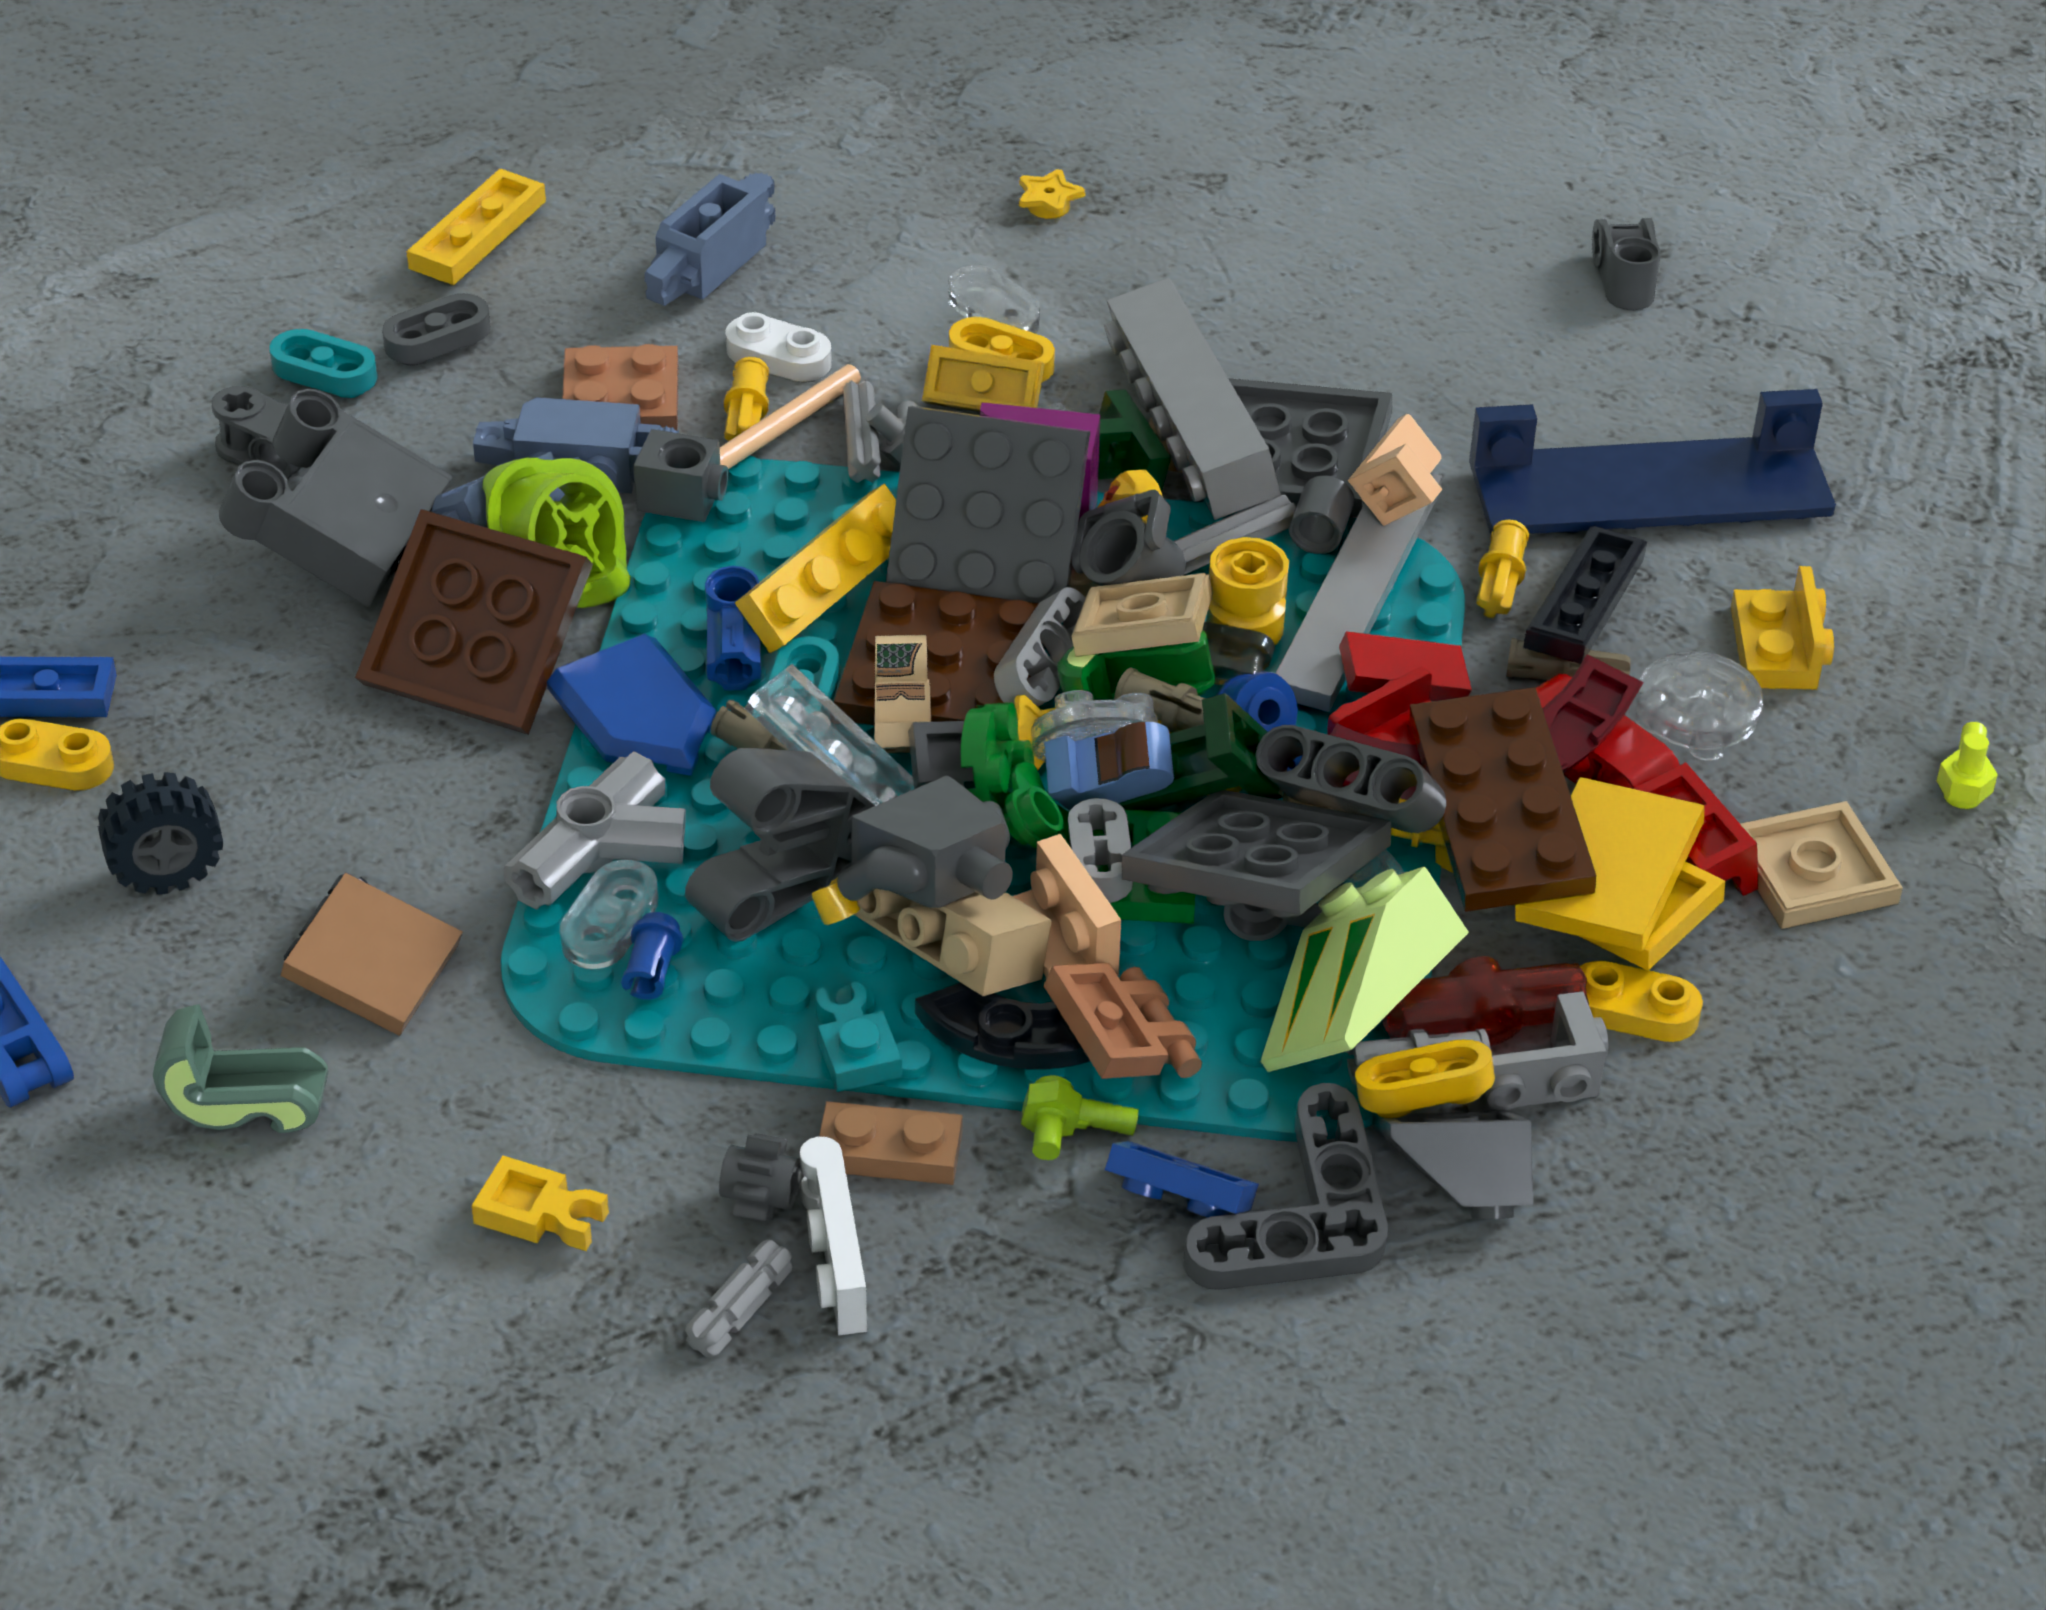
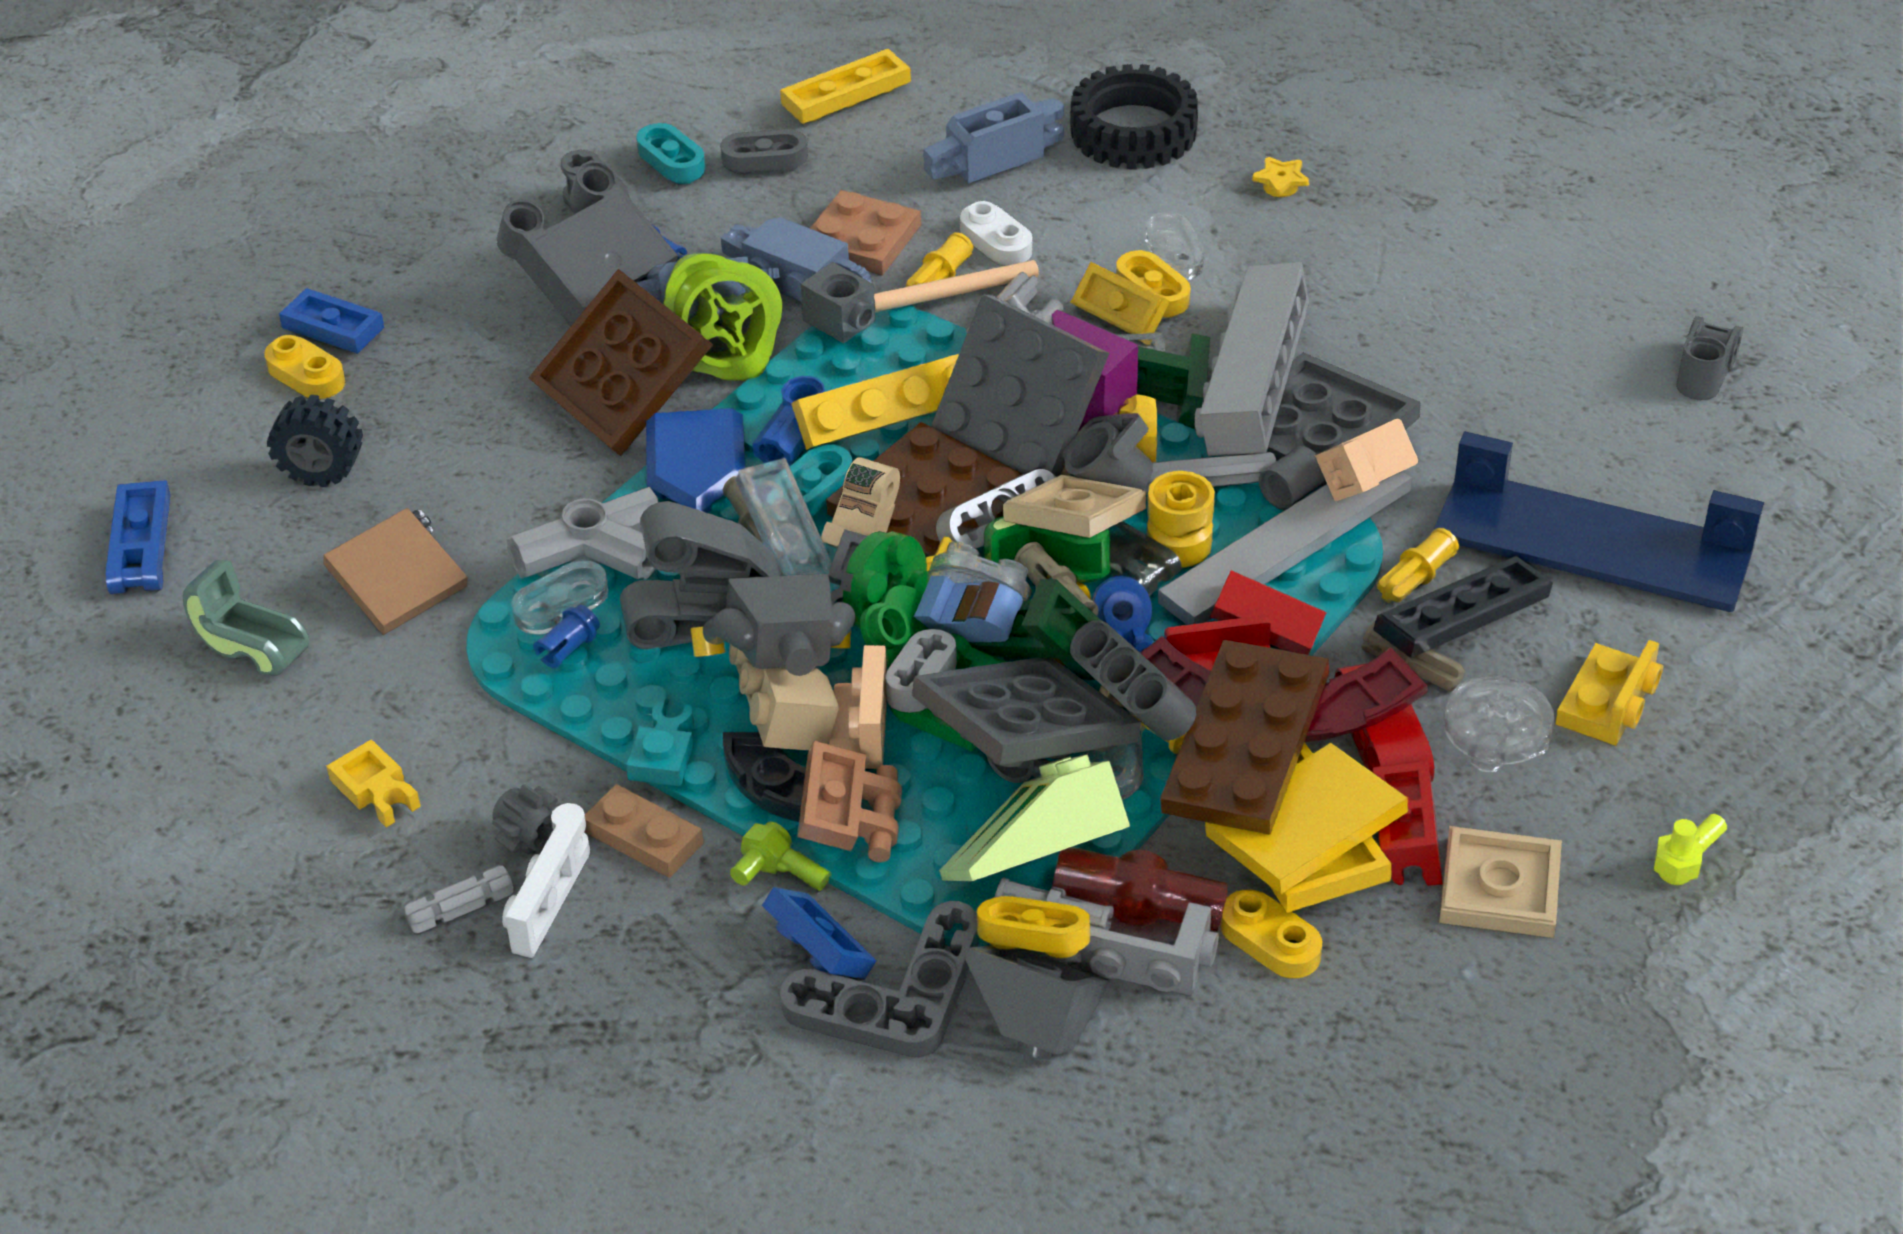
camera: 30 degrees right, 0 degrees up
(837, 204) = (1130, 143): none -> black tyre

